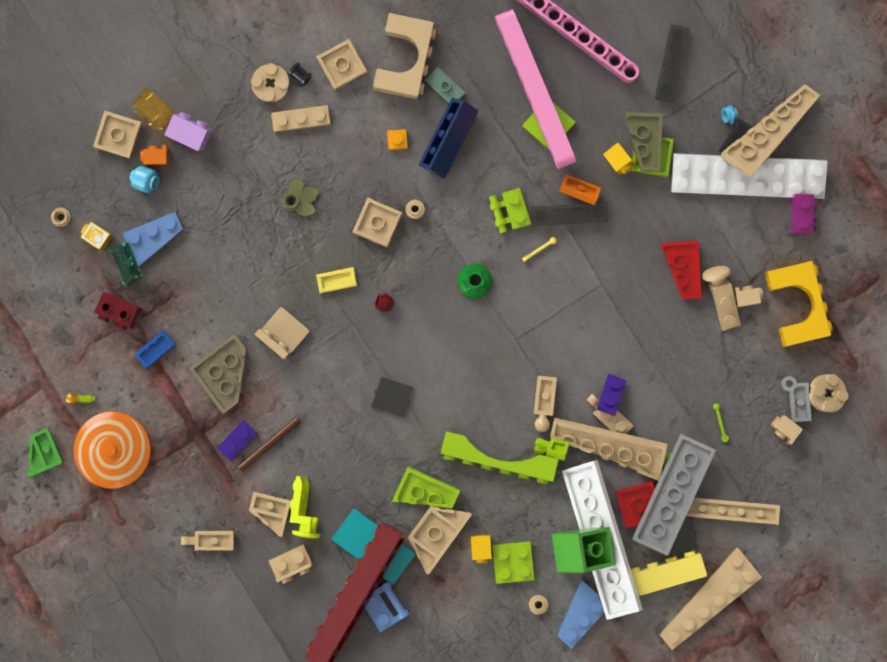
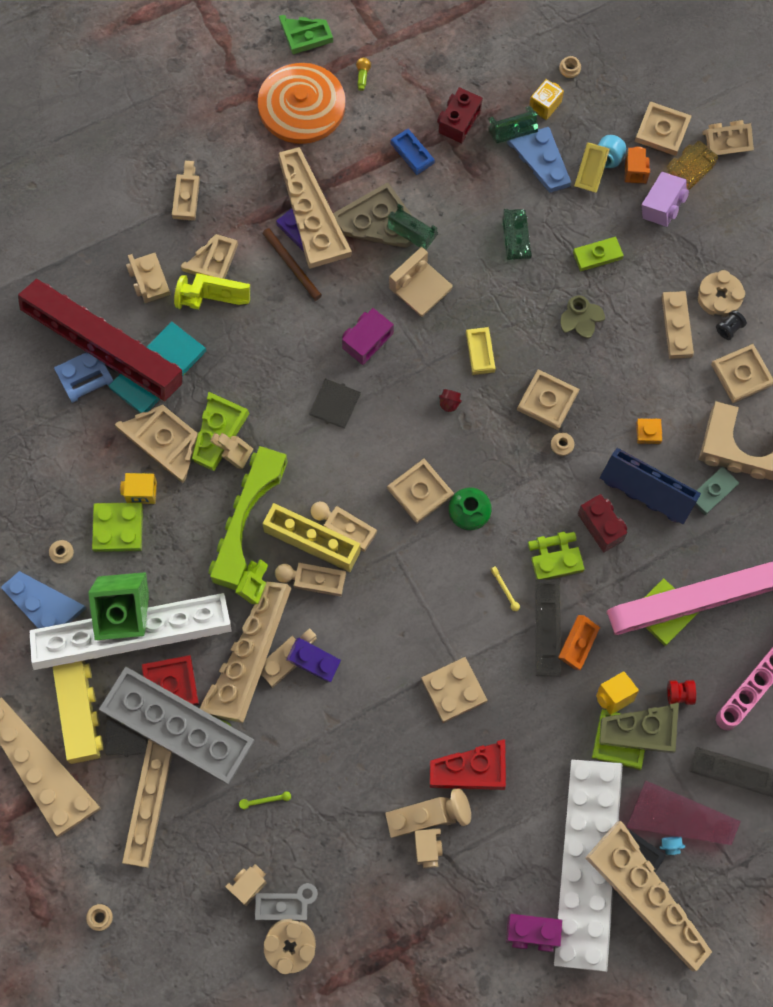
camera: 90 degrees right, 15 degrees down
(123, 78) = (729, 139): none -> tan bracket
(162, 194) = (592, 167): none -> light yellow tile
(229, 255) = (516, 234): none -> clear green hinge
(233, 343) = (411, 228): none -> clear green hinge
(234, 425) = (316, 224): none -> tan wing
(240, 186) = (598, 254): none -> lime plate
(334, 374) = (367, 335): none -> magenta brick
(443, 474) = (235, 449): none -> tan plate
(464, 321) = (420, 491): none -> tan plate
(482, 174) = (602, 522): none -> dark red brick
(498, 380) = (344, 524): none -> tan plate
(513, 404) = (311, 537): none -> light yellow brick
(613, 109) = (681, 692): none -> red wheel
(623, 284) = (454, 689): none -> tan plate
(706, 115) = (675, 815): none -> clear pink wing
(805, 278) = (449, 926): yellow arch -> none
(824, 537) = (91, 917): none -> tan plate

